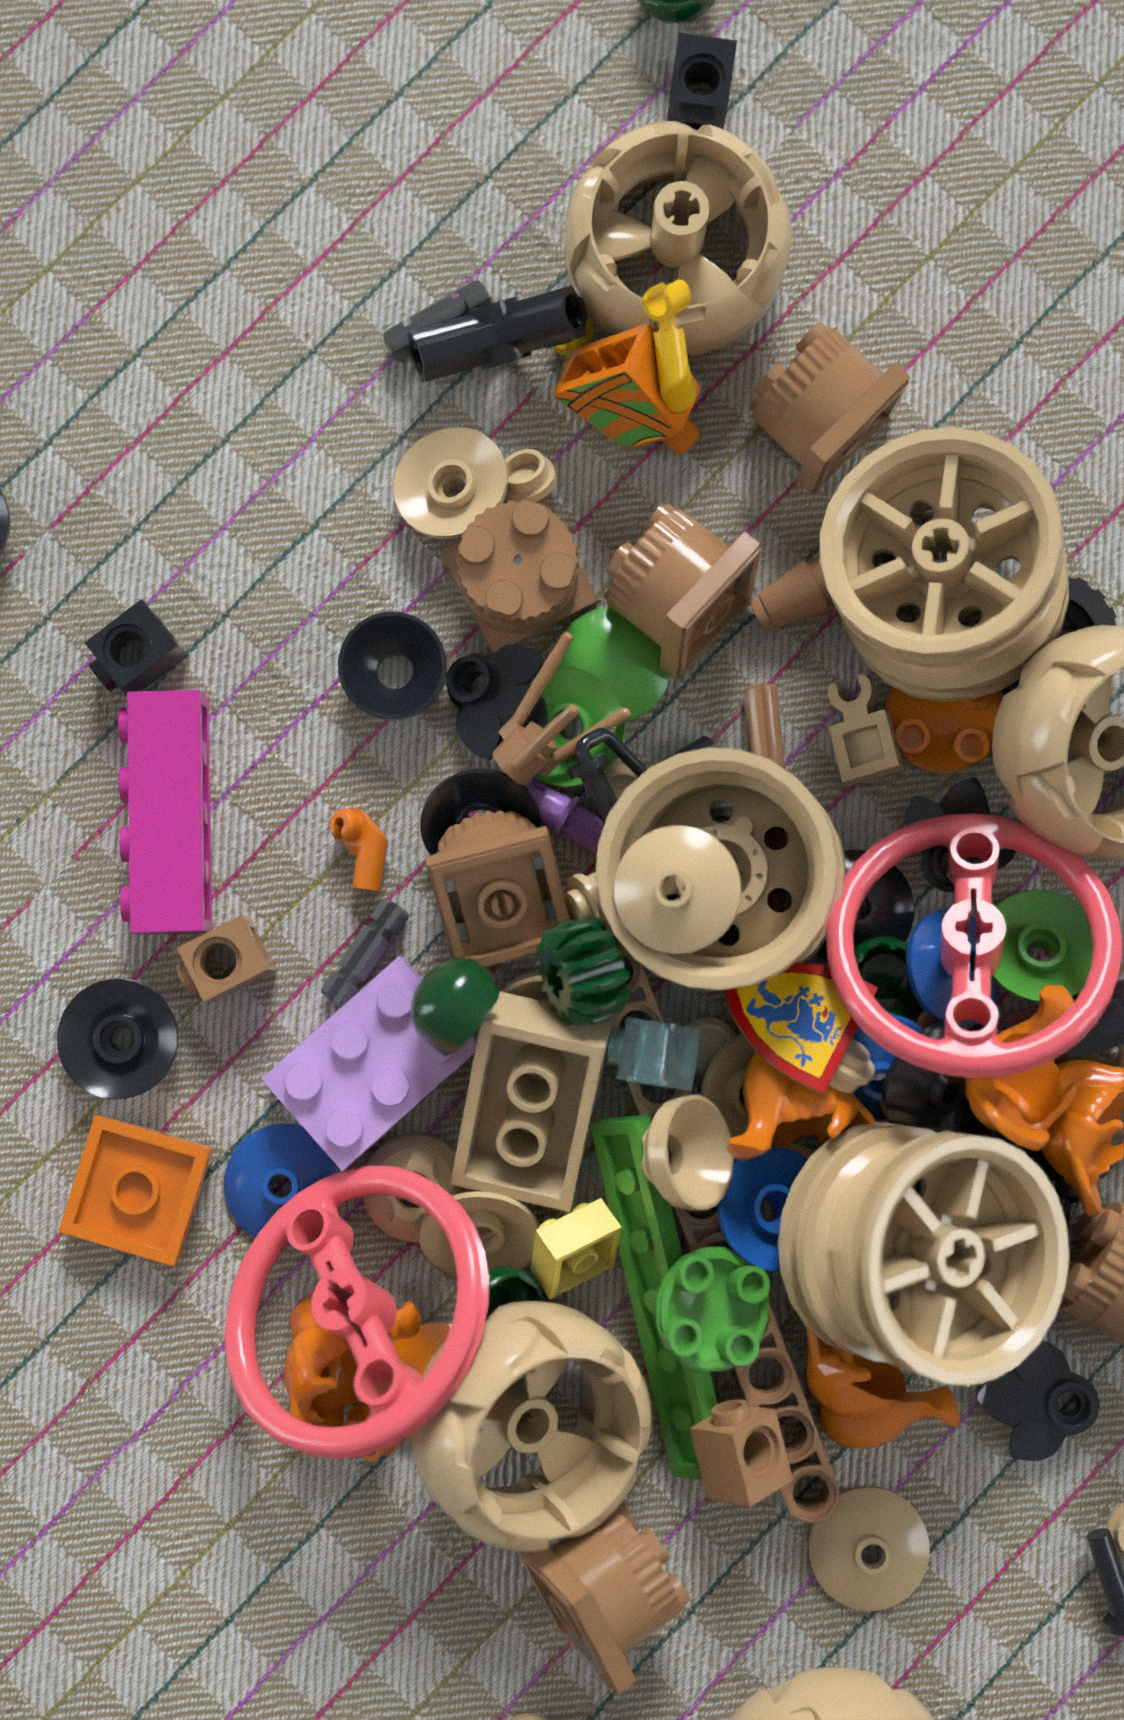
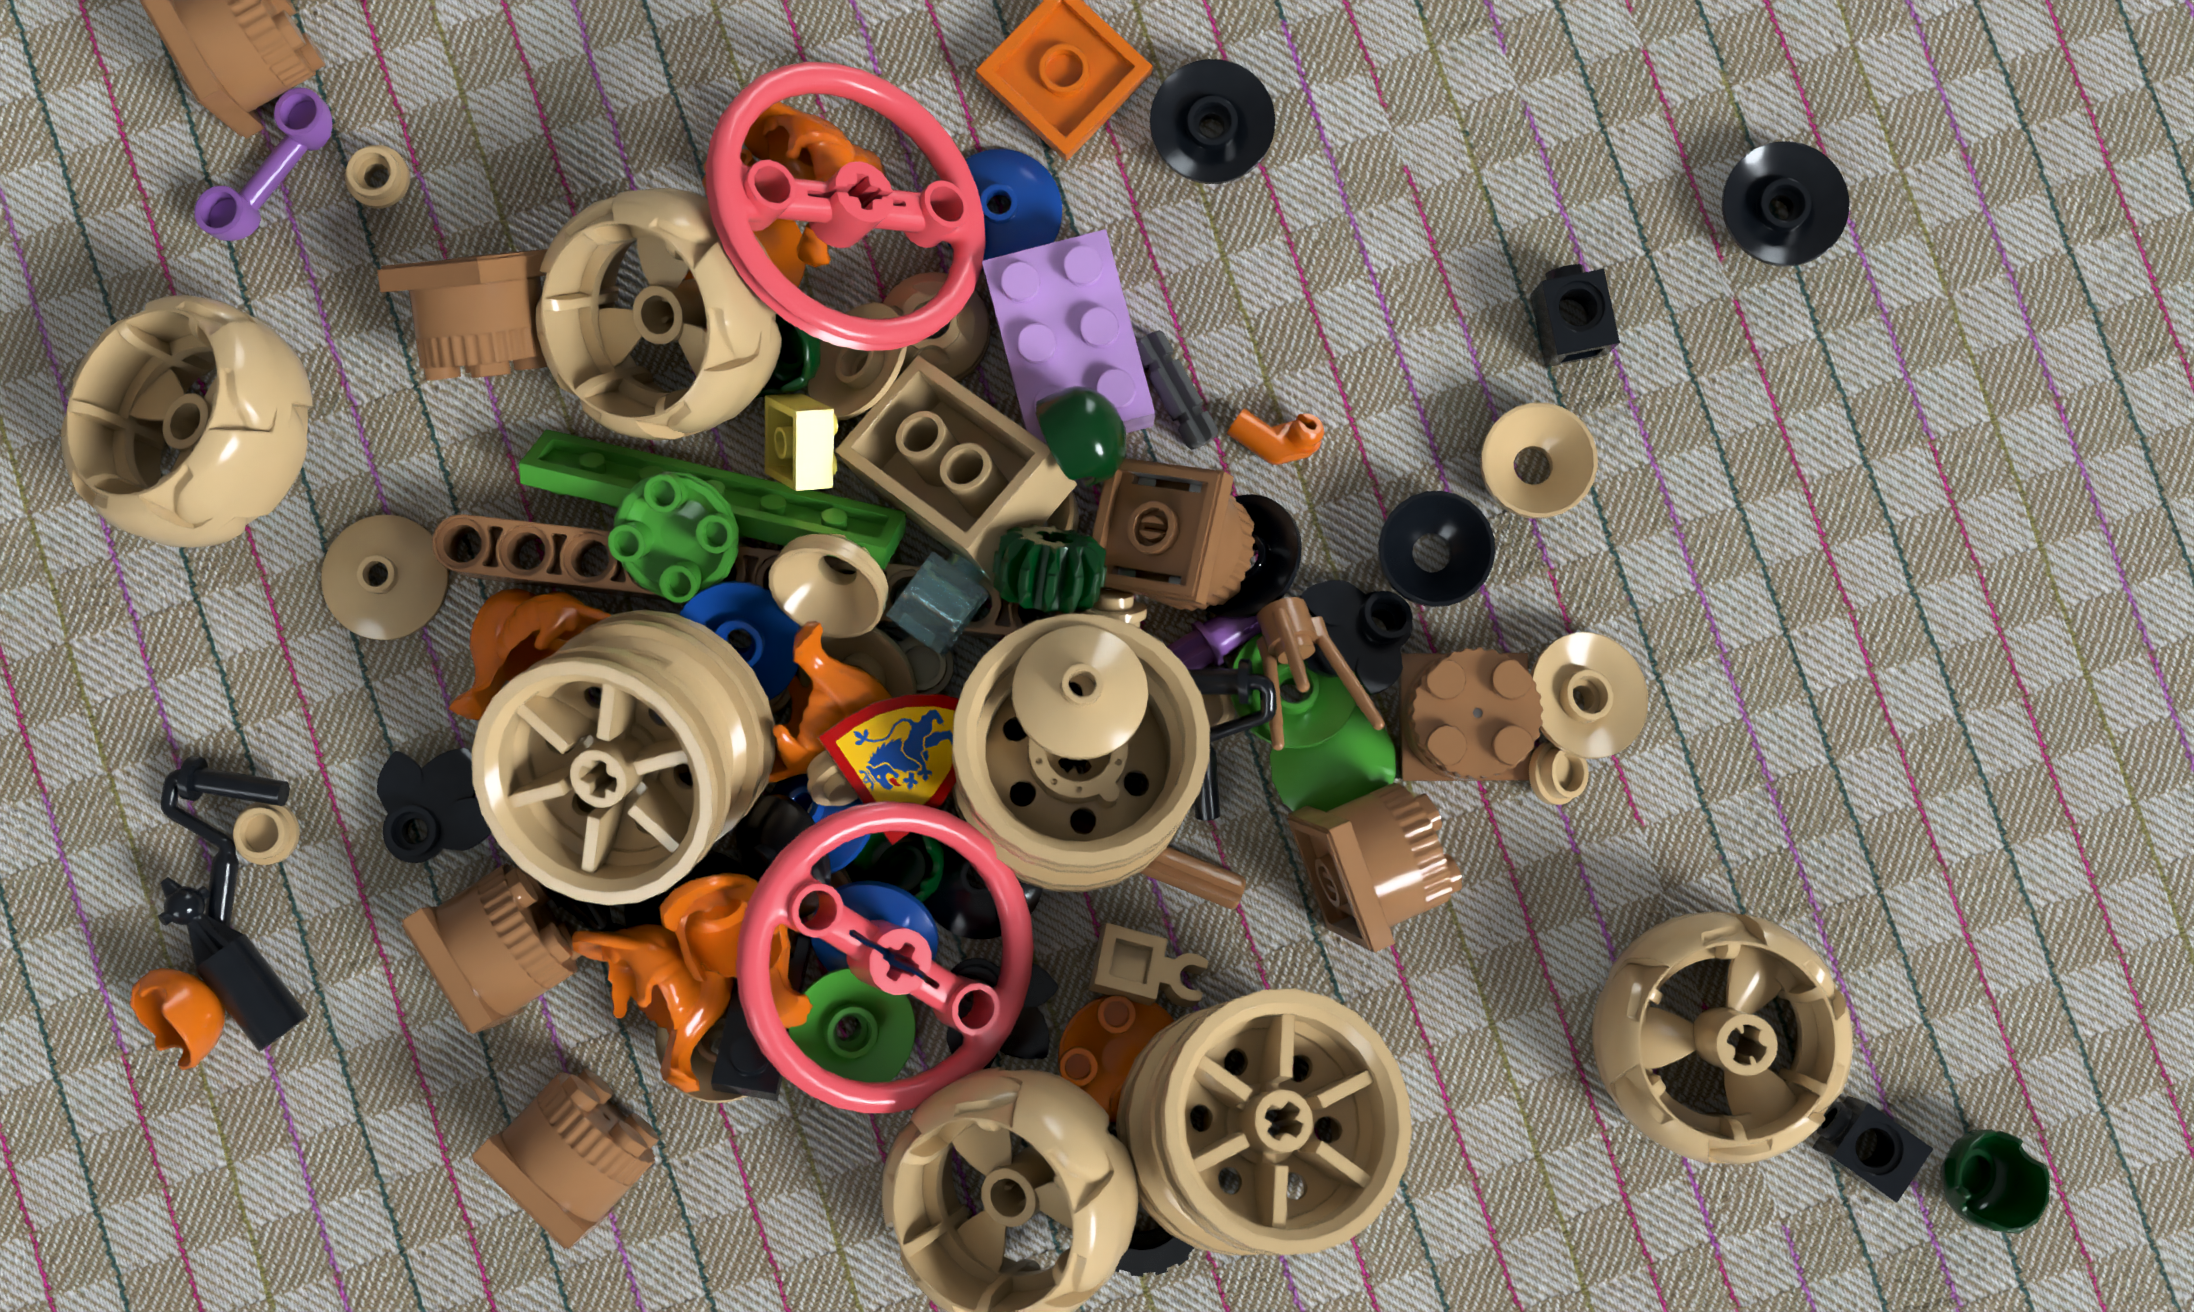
camera: 115 degrees right, 0 degrees up
(168, 812) = (1401, 270): dark pink brick -> none
(251, 960) = (1235, 281): medium nougat brick -> none
(254, 597) = (1563, 442): none -> tan piece
(447, 308) = (1756, 766): dark grey axle -> none
(497, 333) = (1713, 814): black piece -> none
(638, 380) = (1603, 918): torso -> none
(741, 1453) = (531, 494): medium nougat brick -> none
(793, 596) = (1312, 962): medium nougat cone -> none
(825, 403) = (1485, 1098): medium nougat piece -> none

